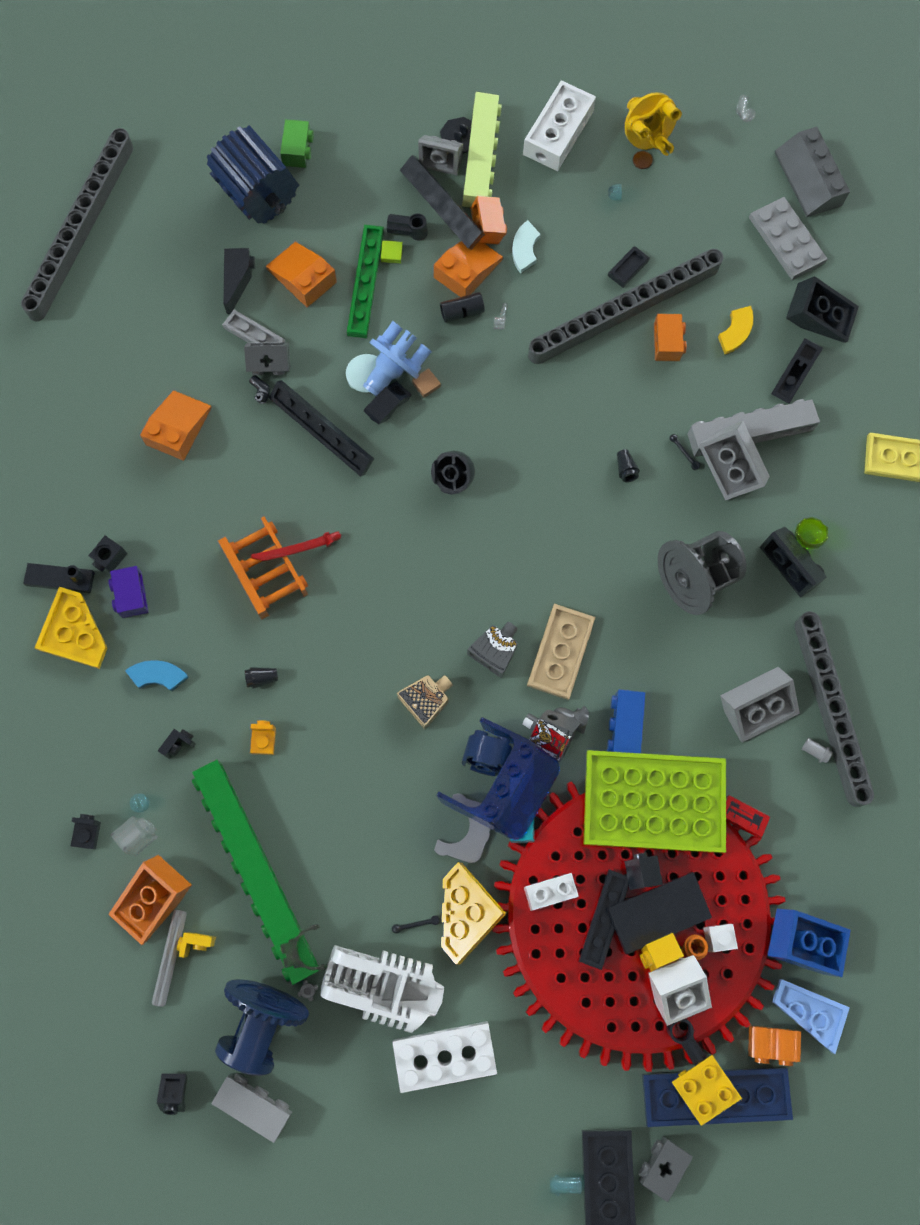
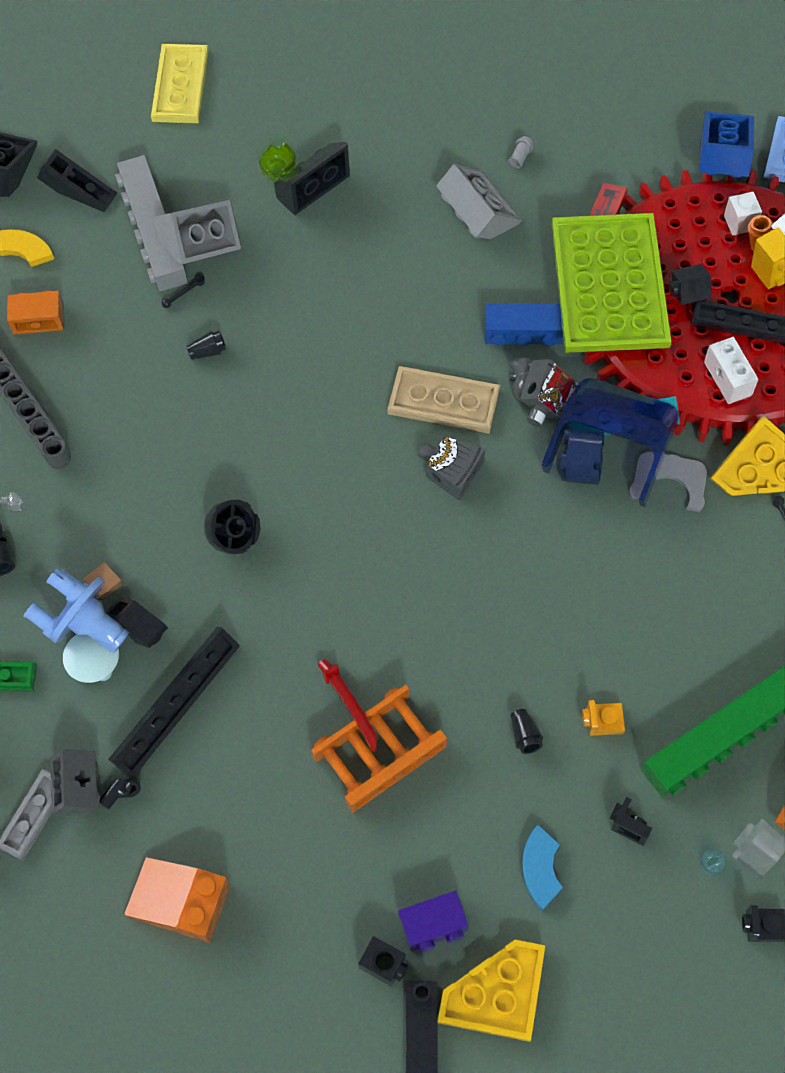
camera: 90 degrees left, 10 degrees down
(425, 698) = (525, 534): torso -> none
(659, 912) = (732, 271): black tile -> none
(690, 581) = (333, 250): dark grey piece -> none
(830, 718) = (472, 138): dark grey beam -> none

